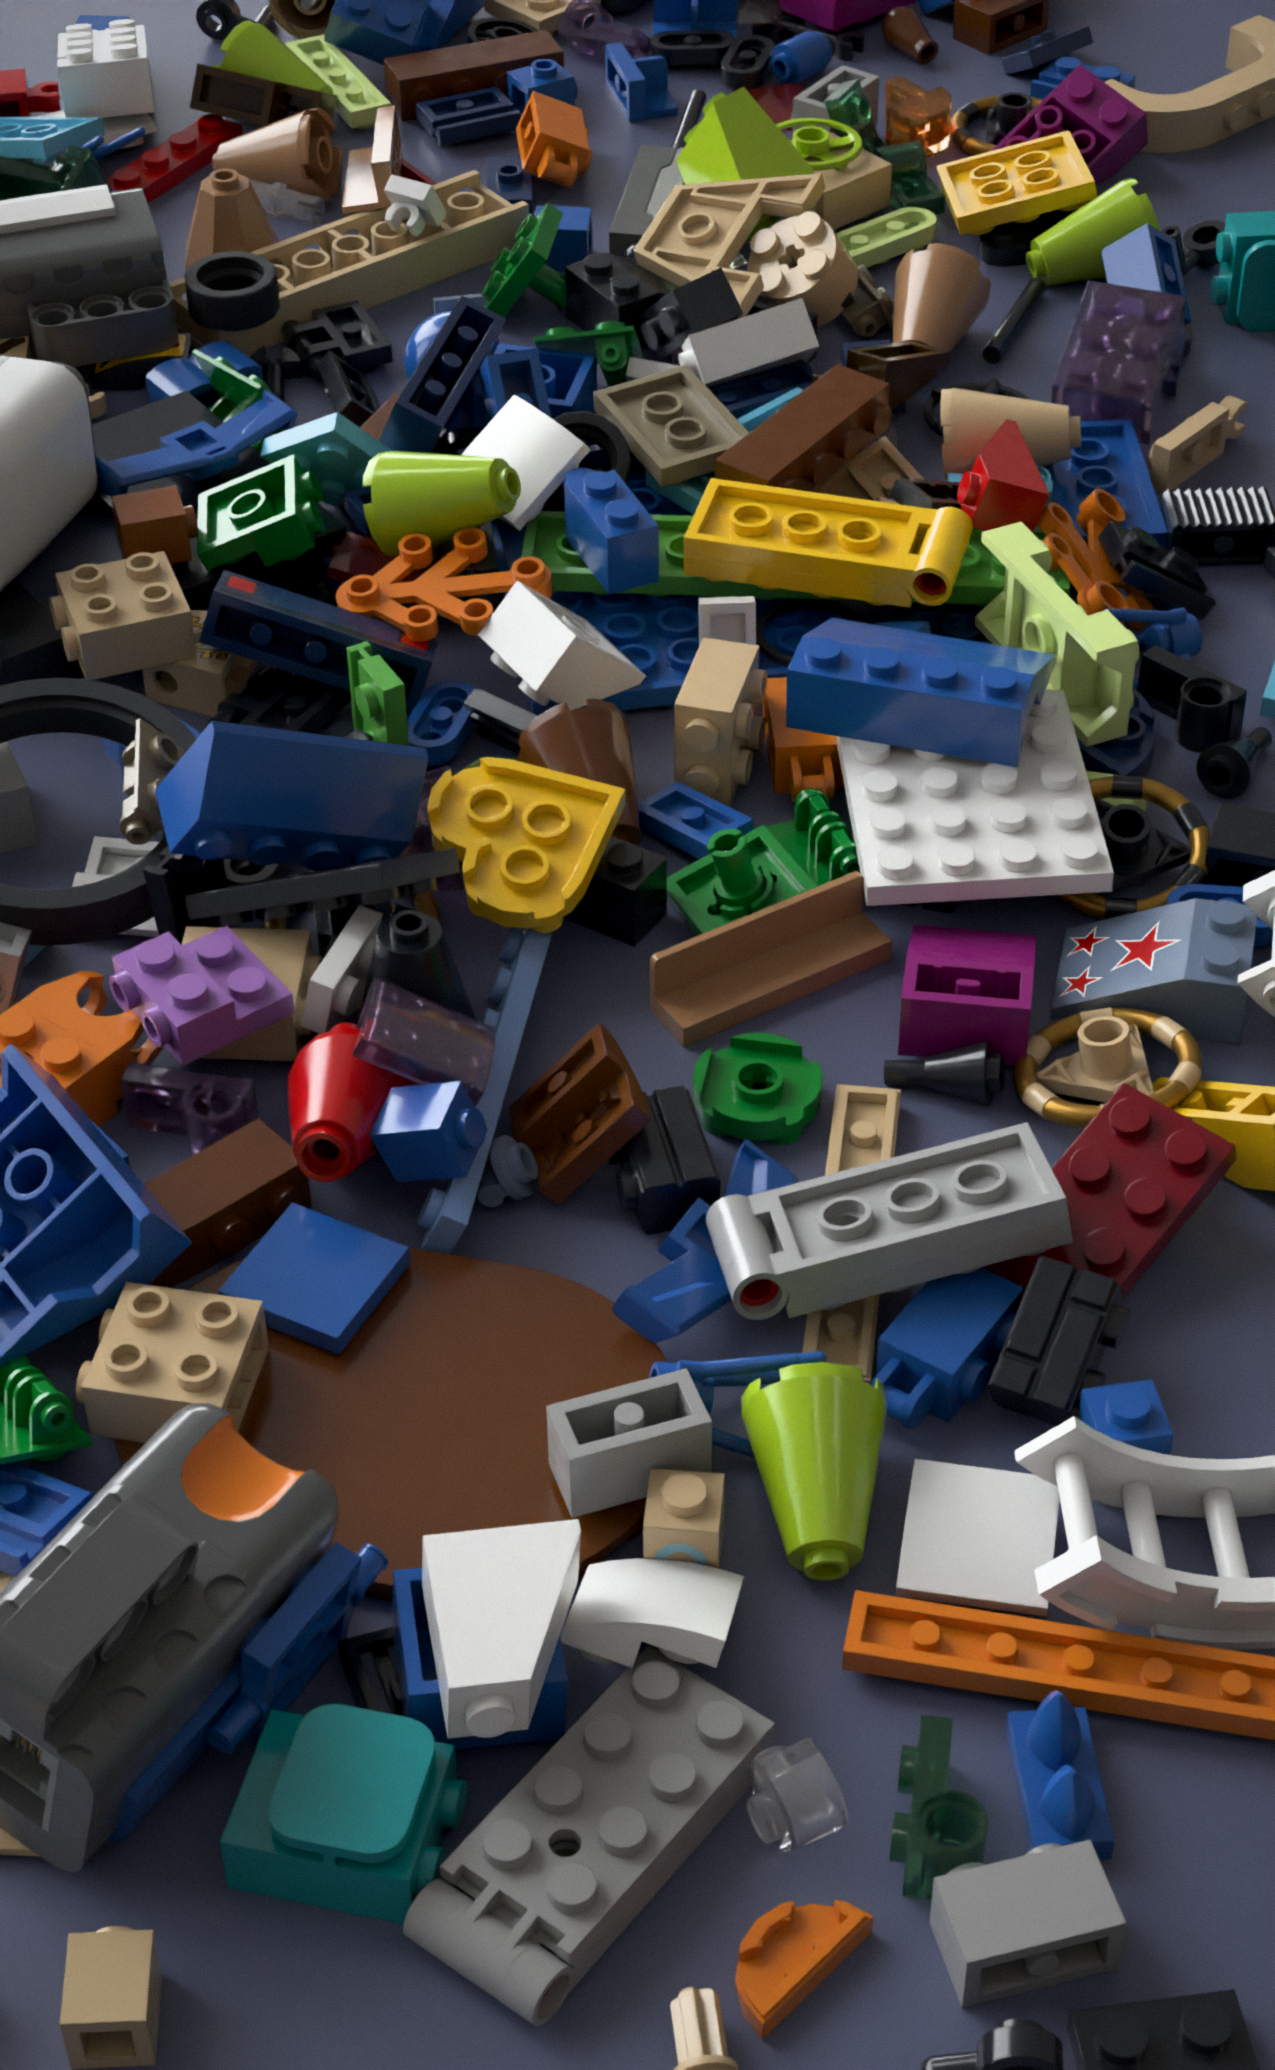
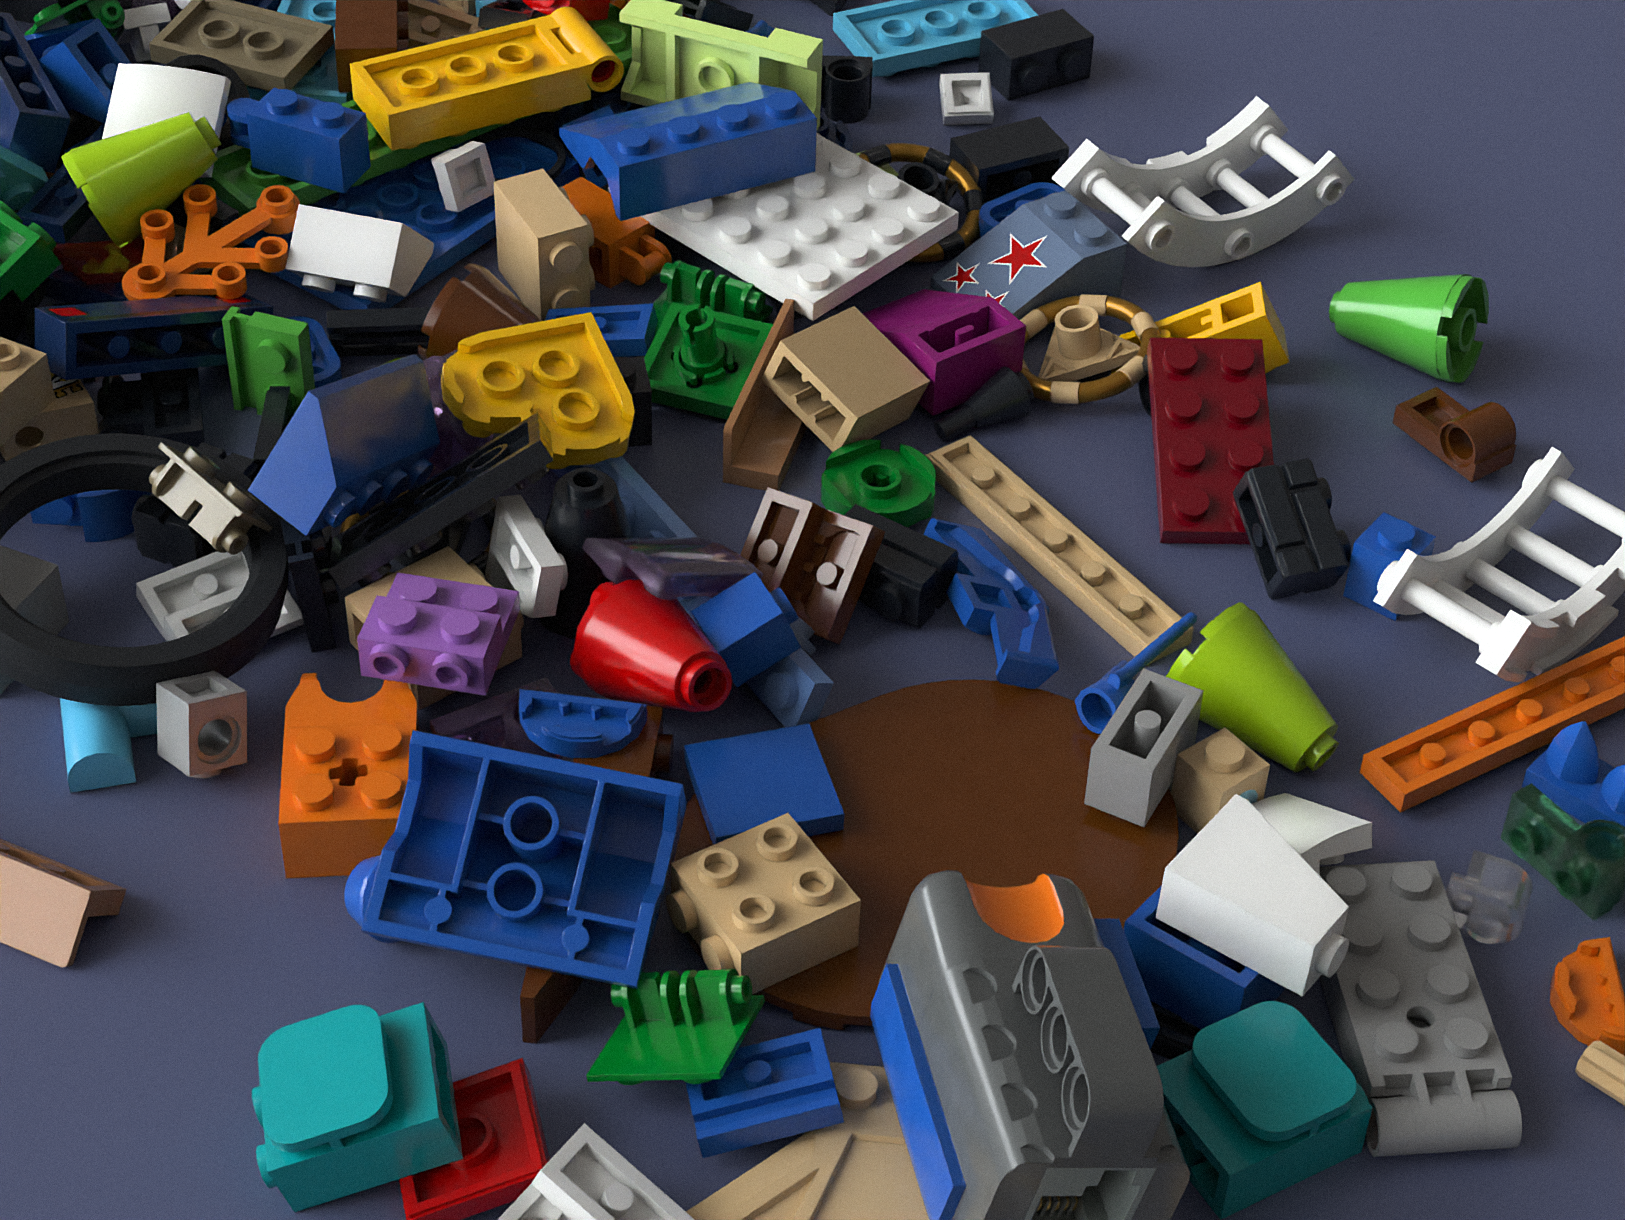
camera: 45 degrees left, 0 degrees up
(220, 1133) = (579, 724): none -> blue tile
(824, 972) = (844, 379): none -> tan brick
(889, 1224) = (1121, 509): light grey hinge -> none
(945, 1345) = (1210, 562): blue brick -> none
(977, 1537) = (1382, 677): white slope -> none
(1229, 766) = (904, 117): black cone -> none

